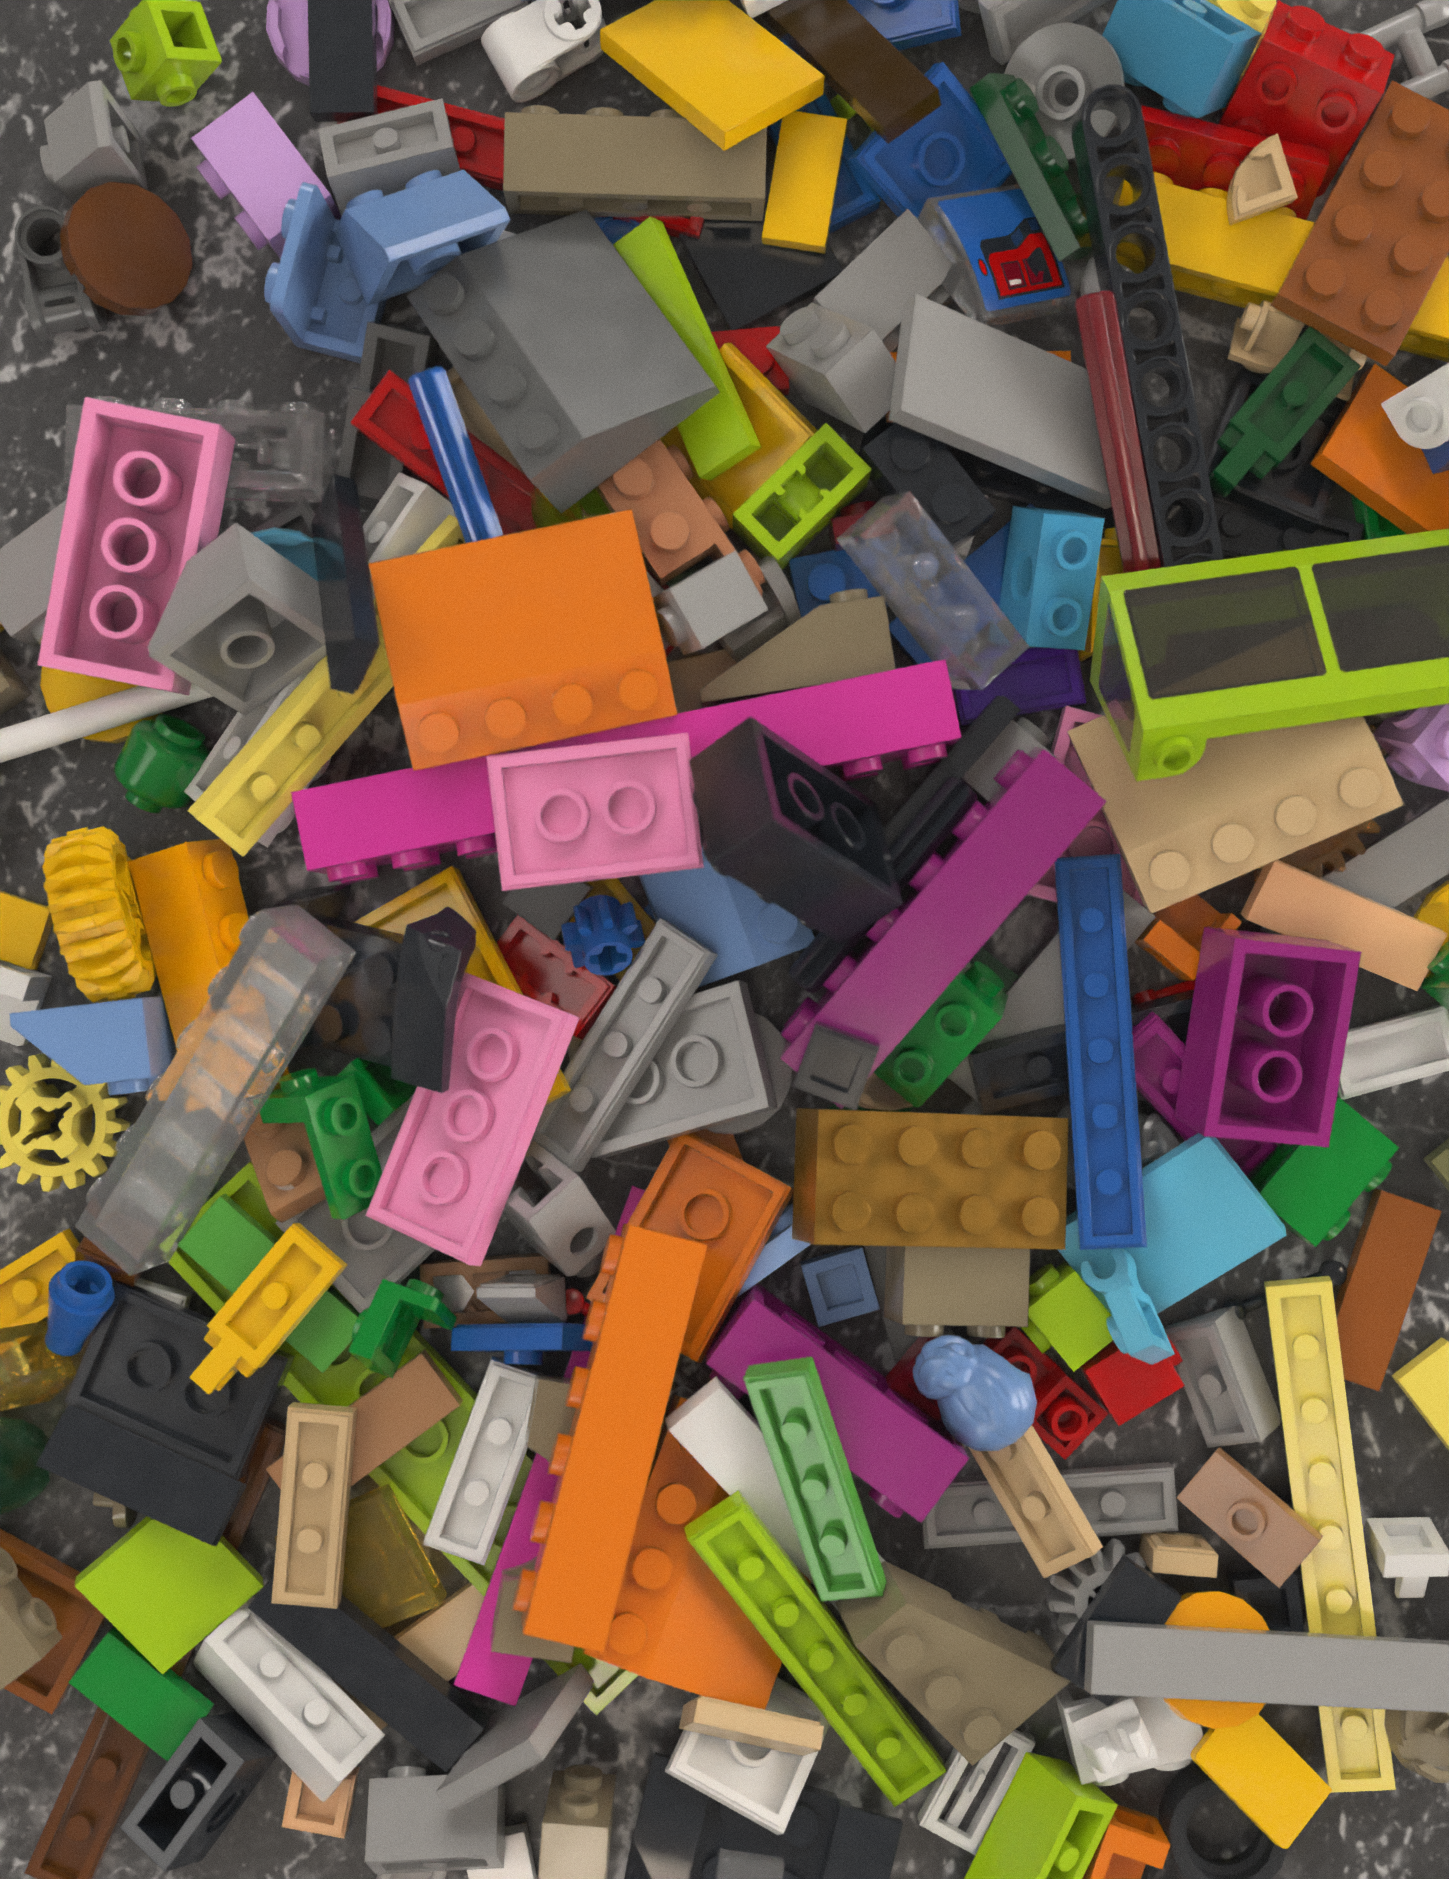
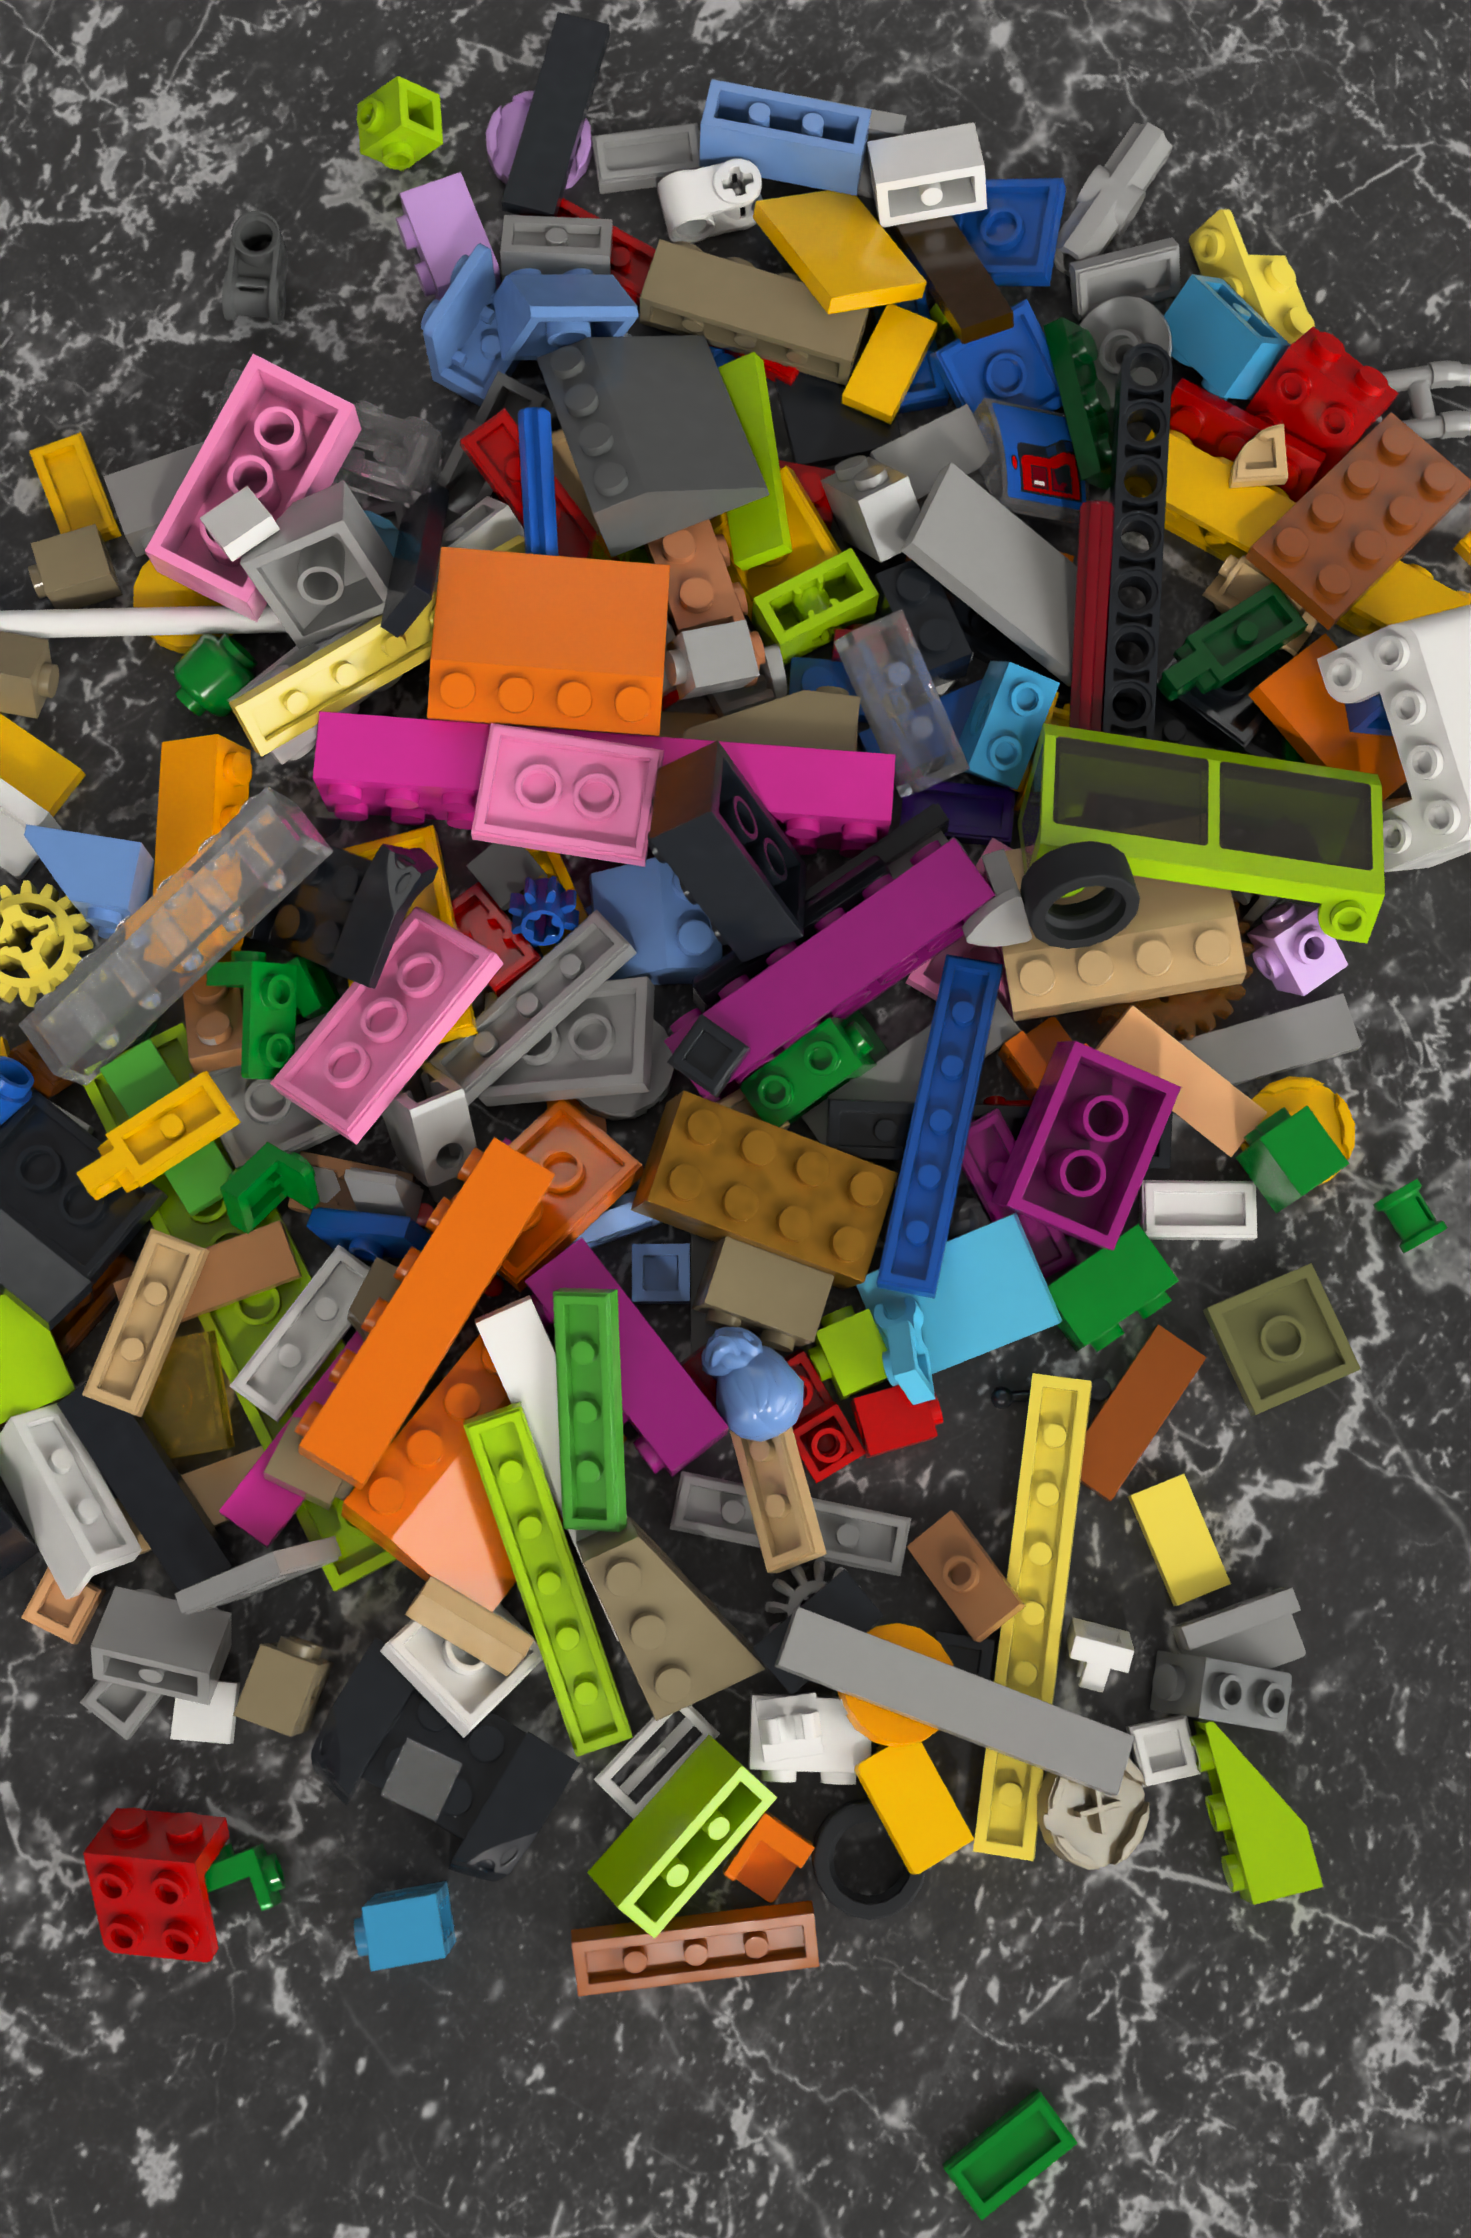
camera: 15 degrees right, 10 degrees down
(91, 144) = (317, 181): light grey slope -> none
(98, 915) = (125, 769): yellow gear -> none
(126, 248) = (319, 264): reddish brown tile -> none
(133, 608) = (239, 523): none -> white tile
(1121, 816) = (1002, 918): none -> light grey tile
(1178, 1554) = (895, 1593): tan tile -> none
(1201, 775) = (1074, 868): none -> black tyre
(1224, 1379) = (976, 1452): light grey slope -> none

